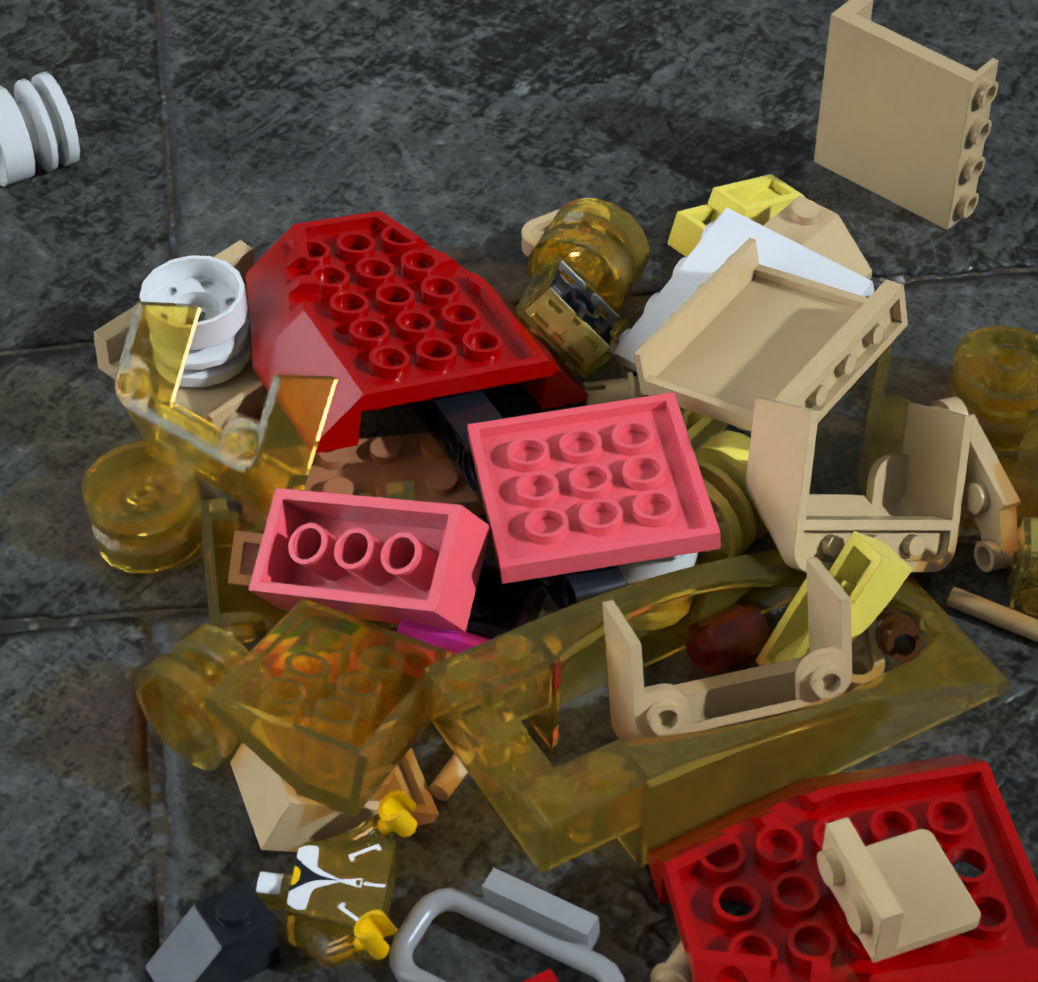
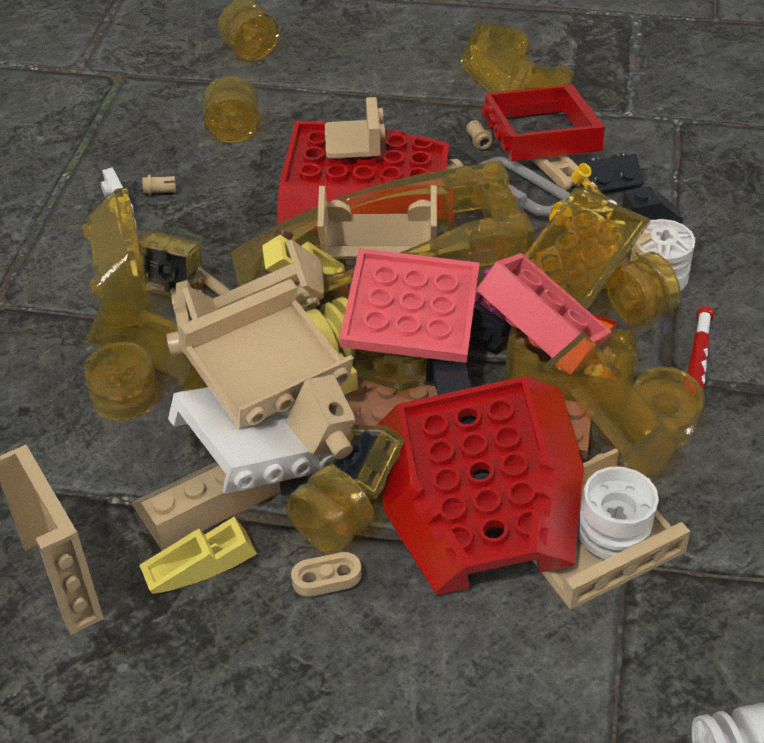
camera: 160 degrees left, 0 degrees up
(95, 636) = (699, 353): none -> red piece
(179, 796) = (672, 242): none -> white wheel
(635, 300) = (322, 417): none -> tan torso

